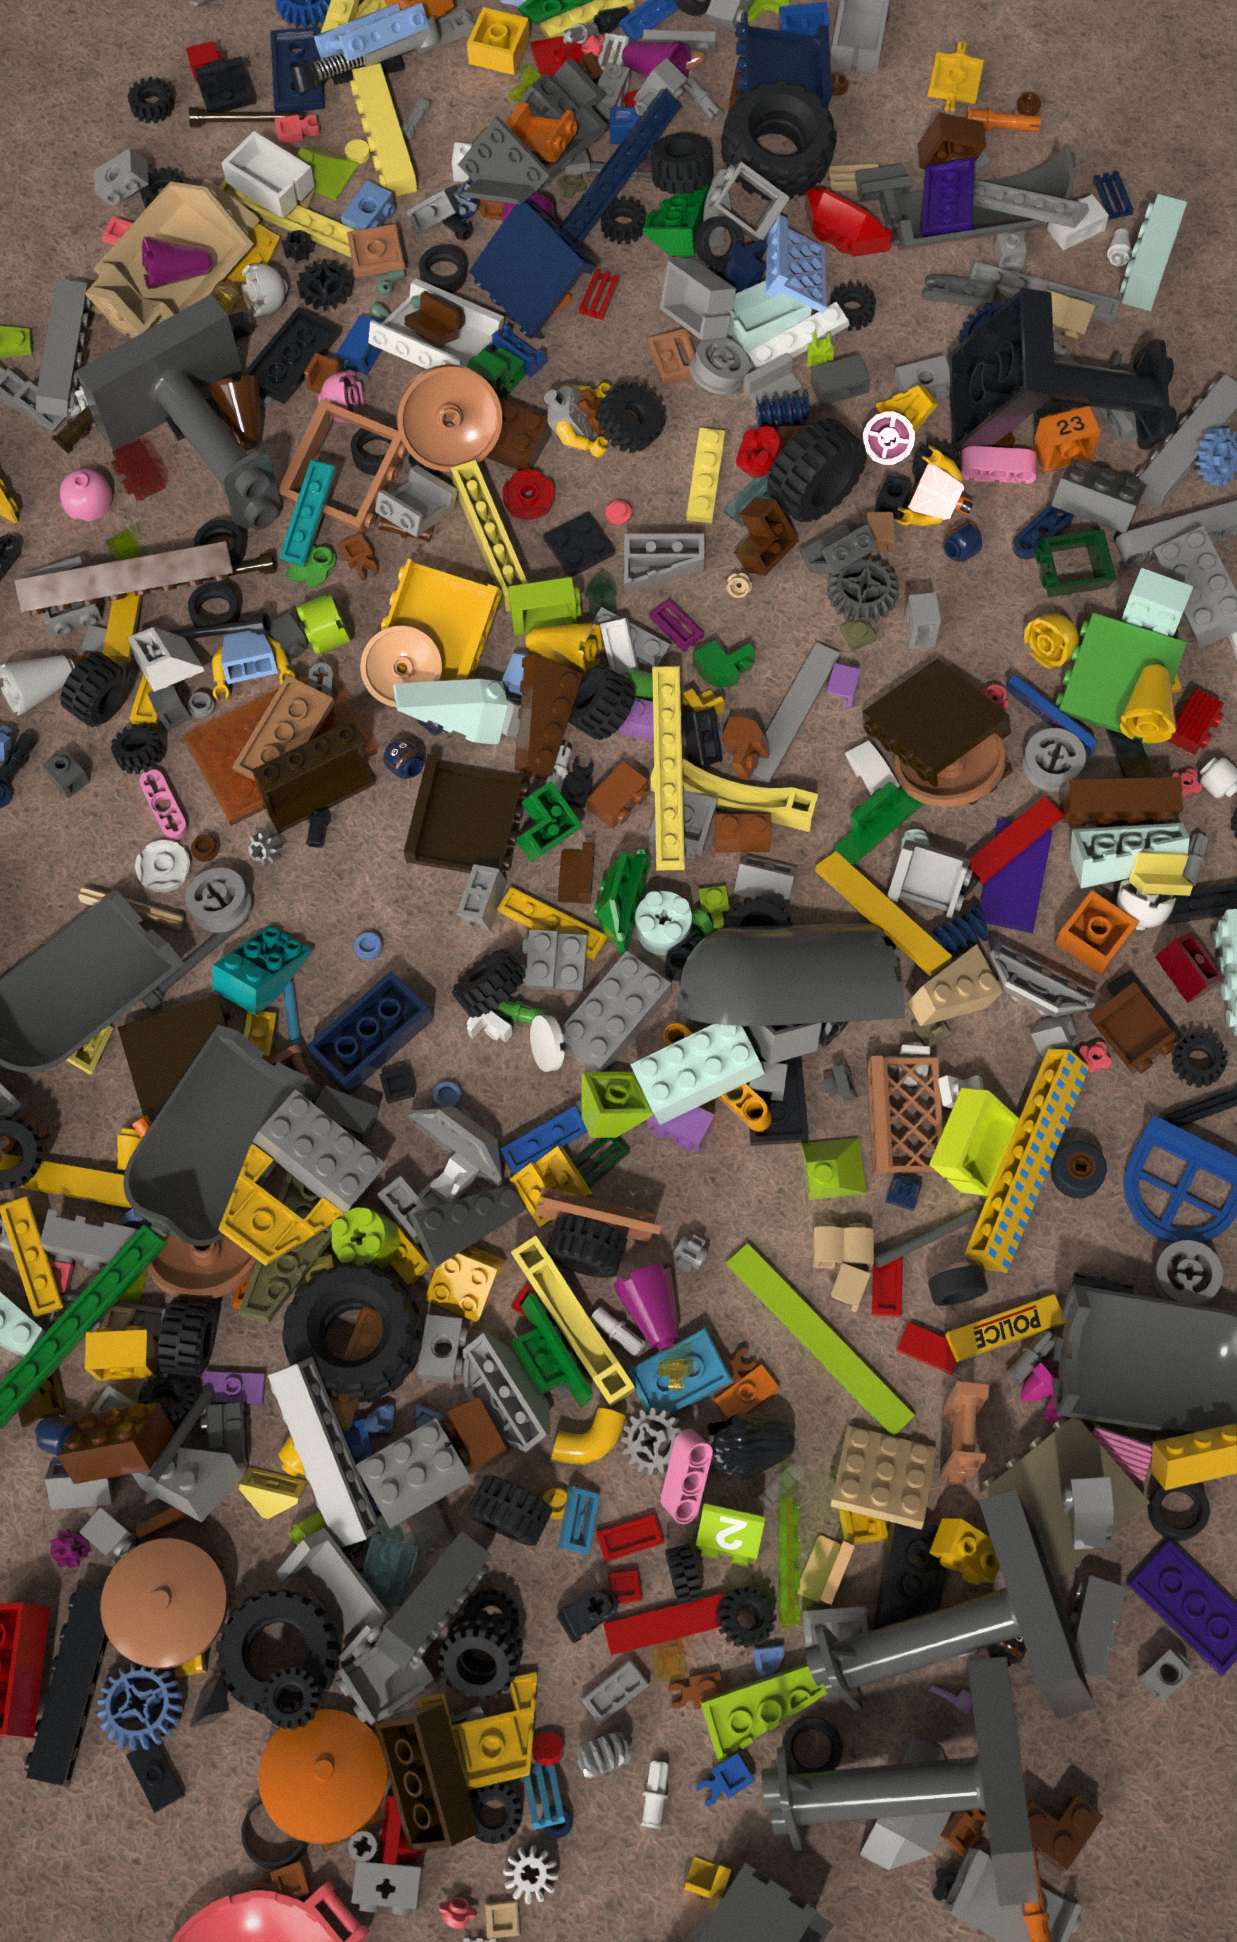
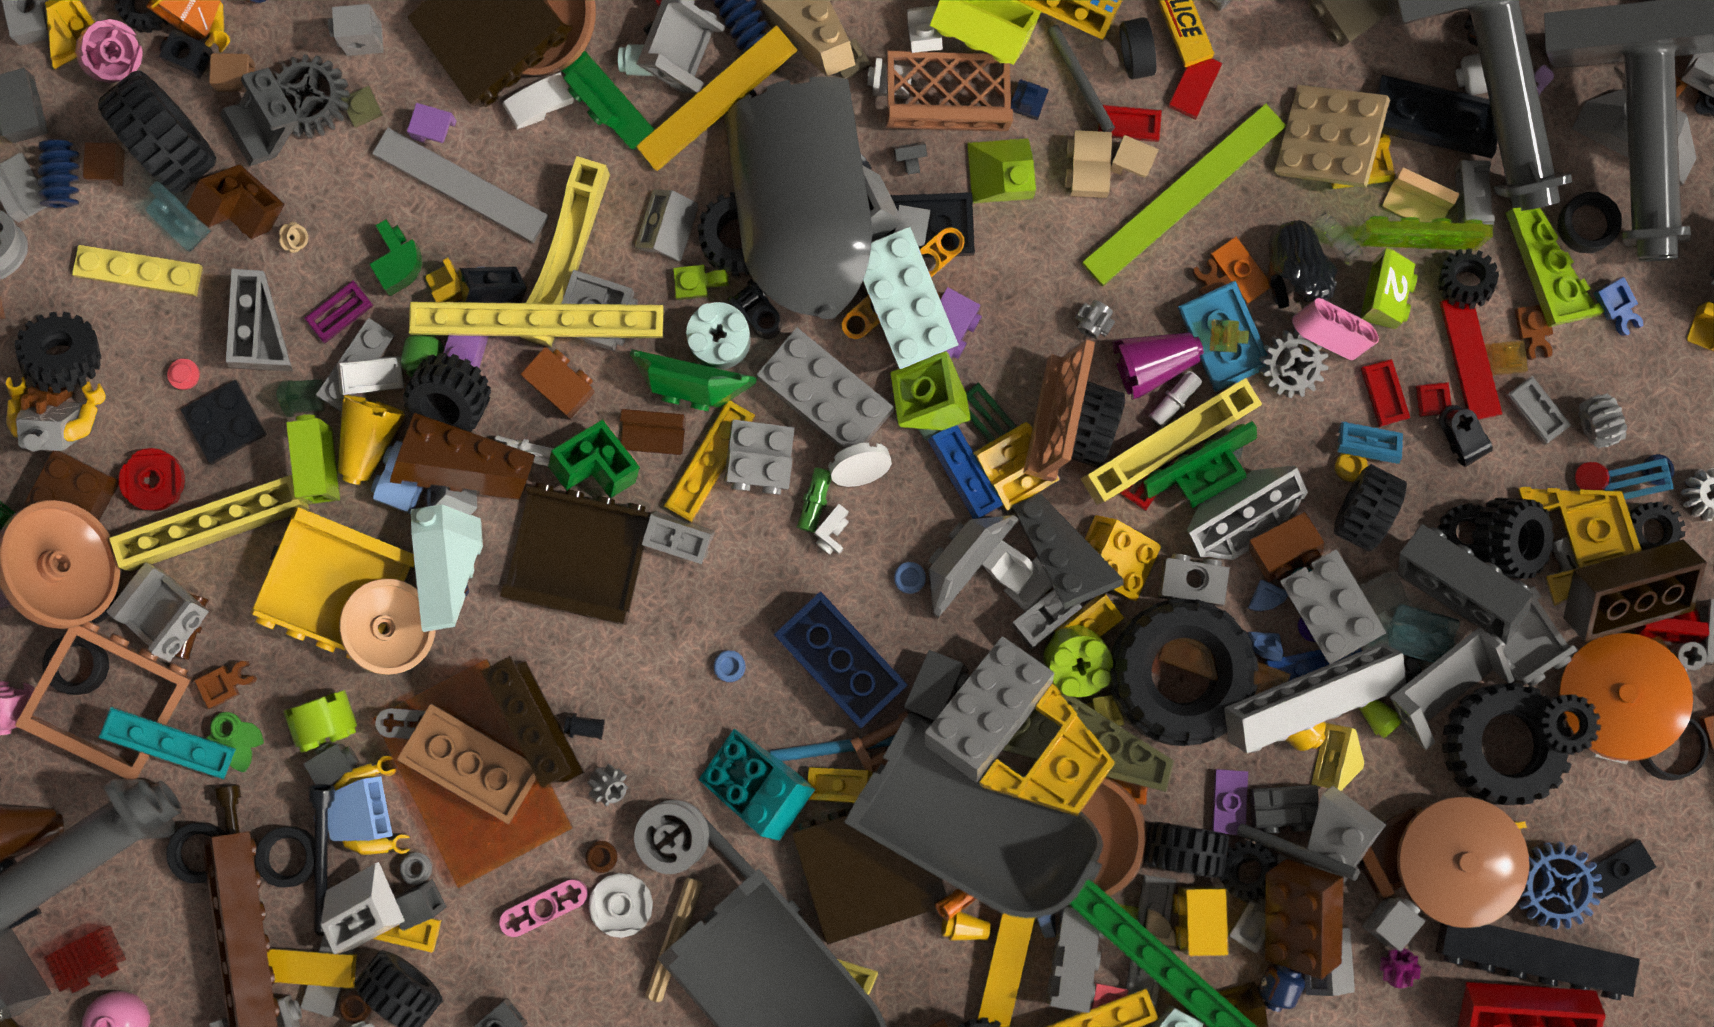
camera: 90 degrees left, 15 degrees up
(123, 546) = (201, 968): clear neon green panel -> none
(143, 758) = (458, 948): black tyre -> none
(210, 1704) = (1561, 812): black slope -> none
(397, 1085) = (898, 631): black plate -> none
(403, 759) = (500, 626): dark blue head -> none
(488, 983) = (791, 526): black tyre -> none
(577, 788) = (543, 430): black plate -> none
(594, 1443) = (1294, 426): yellow cylinder -> none
(655, 1794) = (1633, 374): white axle -> none
(684, 1574) = (1429, 336): black tyre -> none
(701, 921) = (718, 293): bright green tile -> none
(743, 832) = (612, 245): dark orange brick -> none
(747, 744) = (498, 232): dark orange brick -> none
(749, 458) = (103, 214): red plate -> none
(768, 1660) = (1506, 261): medium blue tile -> none
(962, 1409) = (1303, 46): nougat fence -> none
(965, 1550) = (1408, 59): yellow brick -> none

